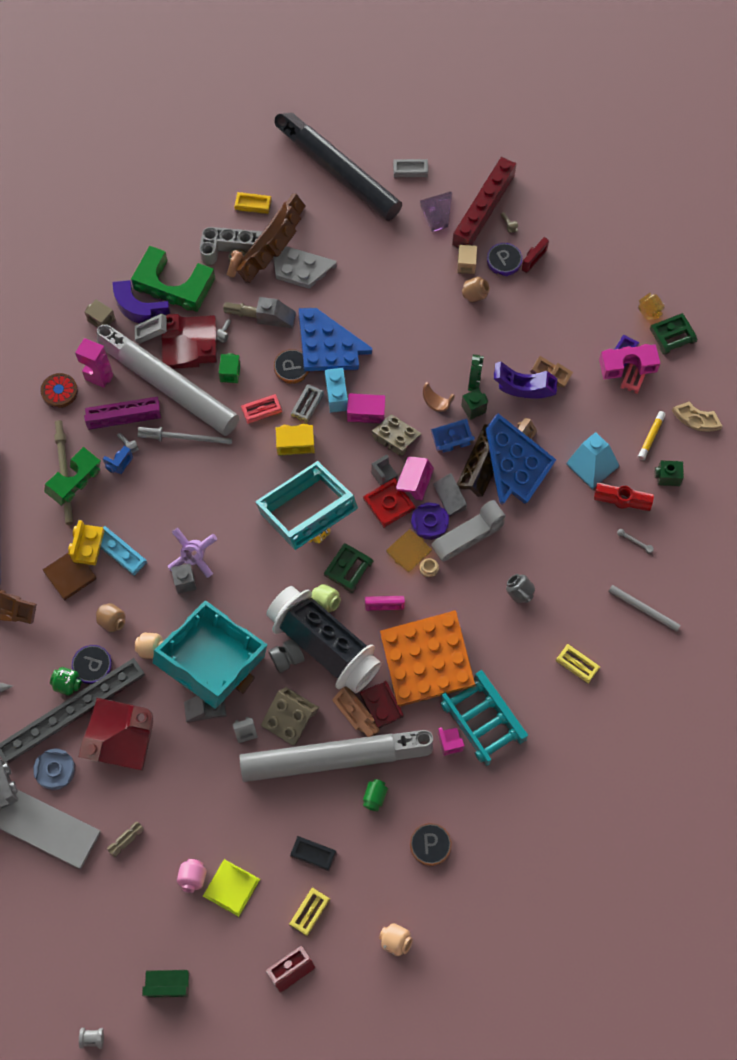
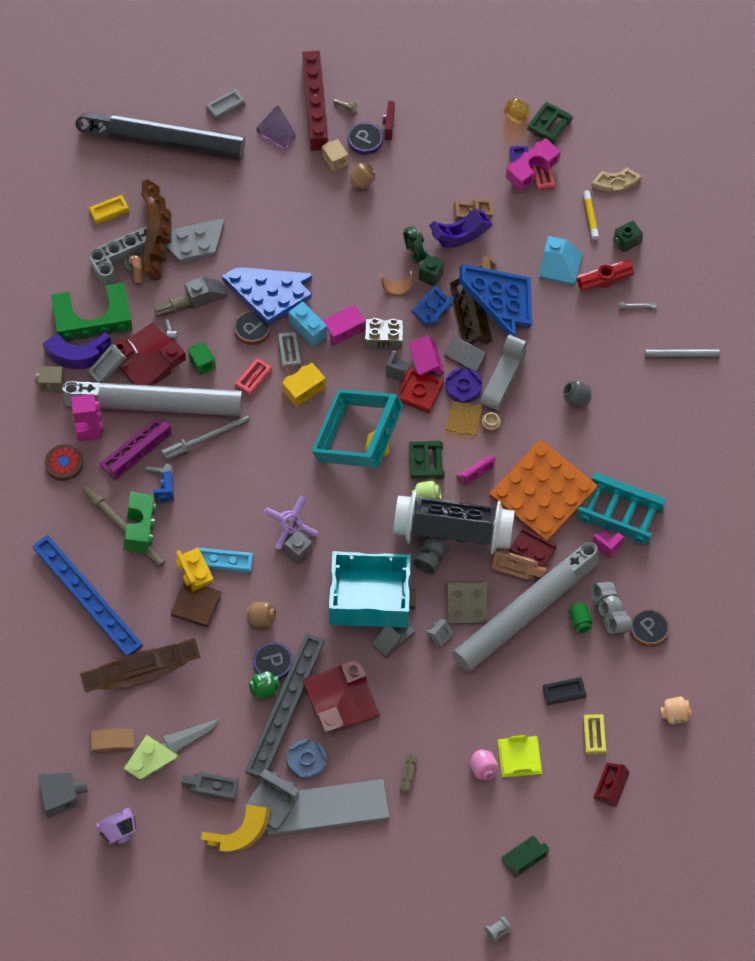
camera: 35 degrees left, 5 degrees down
(147, 644) = (311, 616): light nougat head -> none
(407, 804) = (610, 607): none -> light grey piece
(573, 669) = (662, 428): light yellow tile -> none

